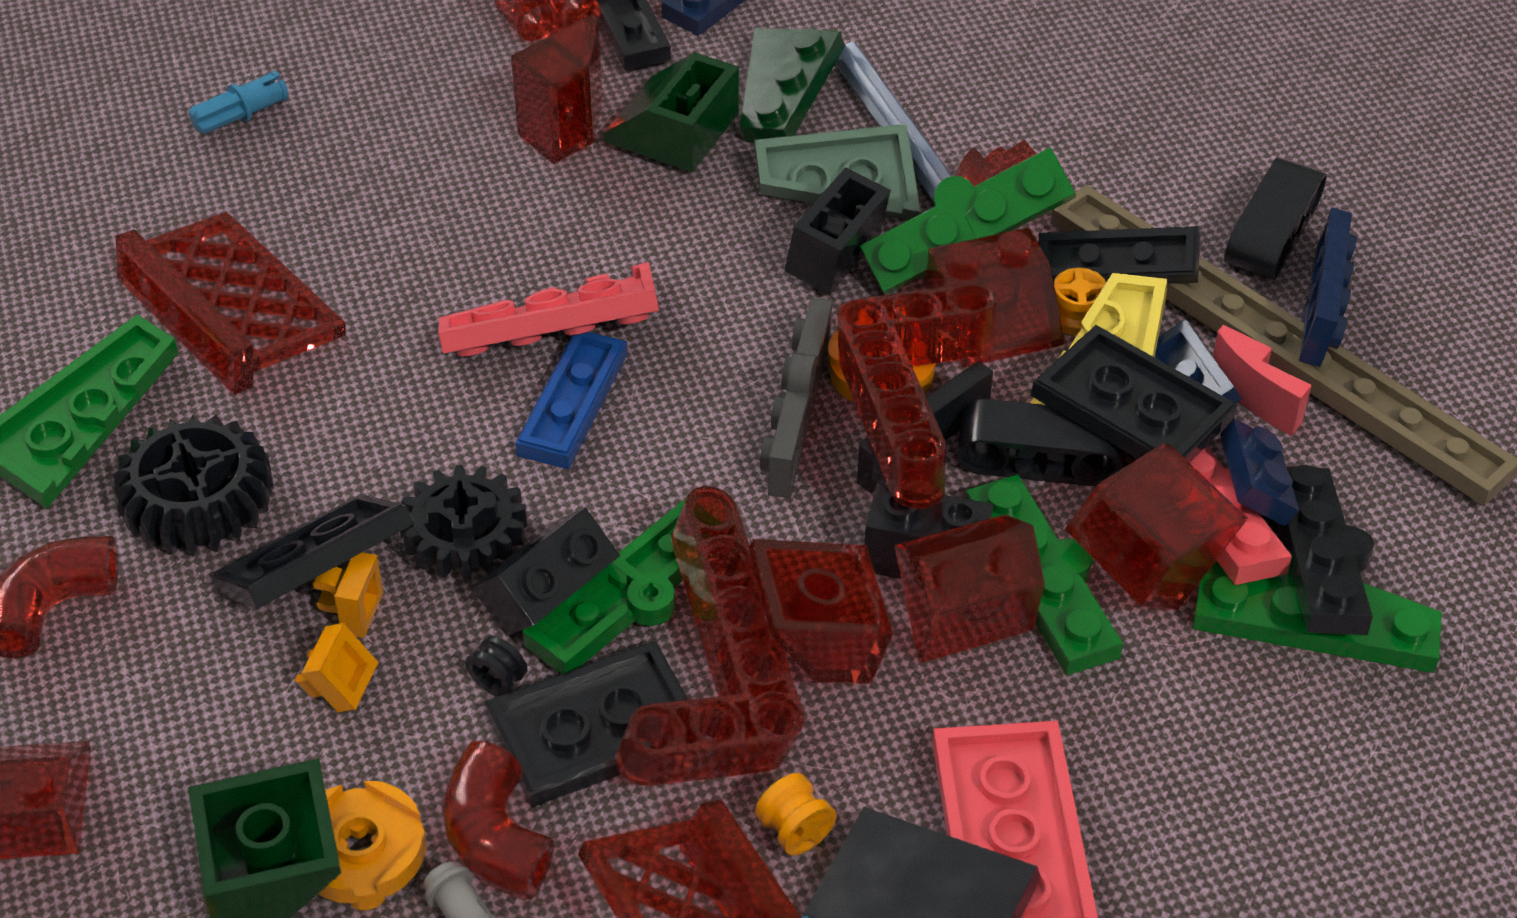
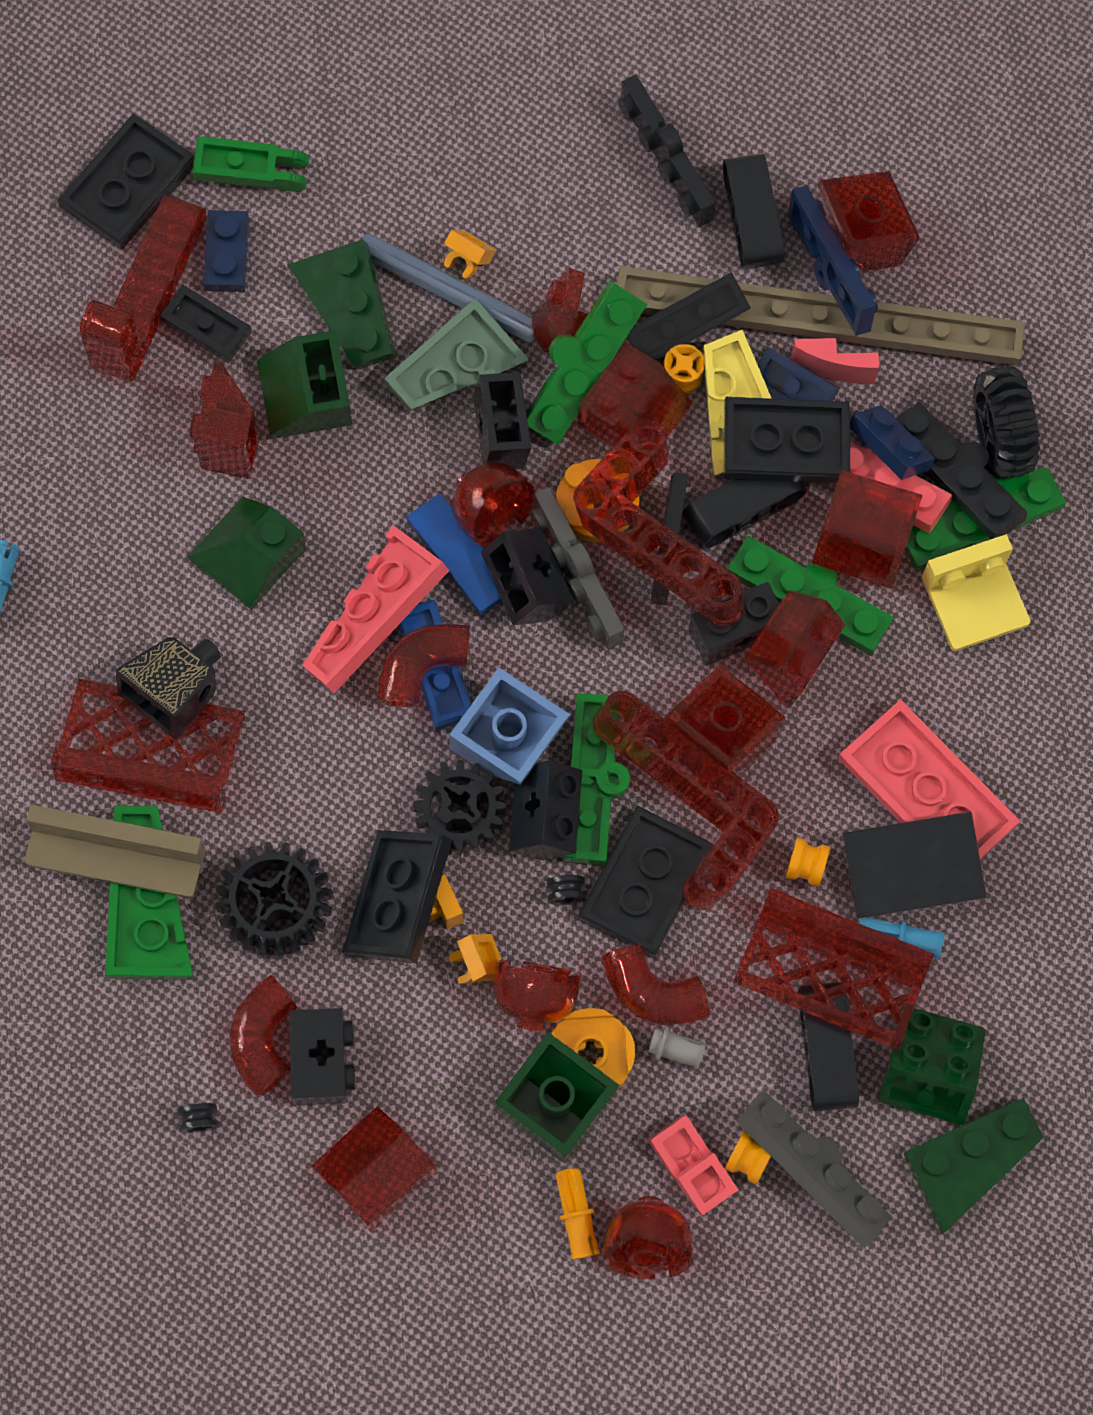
camera: 40 degrees left, 25 degrees up
(77, 647) = (308, 1033): none -> black brick
(92, 341) = (114, 851): none -> dark tan panel
(298, 250) = (170, 683): none -> black torso
(355, 730) = (535, 992): none -> clear red cylinder
(490, 210) = (249, 550): none -> dark green slope
(549, 360) = (415, 656): none -> clear red cylinder
(576, 462) = (507, 728): none -> medium blue slope
(692, 325) = (460, 554): none -> blue tile
(736, 366) = (527, 576): none -> black brick
(760, 288) = (490, 501): none -> clear red cylinder
(939, 103) = (470, 248): none -> light orange tile
(1220, 140) = (668, 149): none -> black hinge
(1247, 671) = (975, 593): none -> light yellow bracket
(1398, 272) = (870, 218): none -> clear red slope
(1417, 523) = (1006, 421): none -> black gear

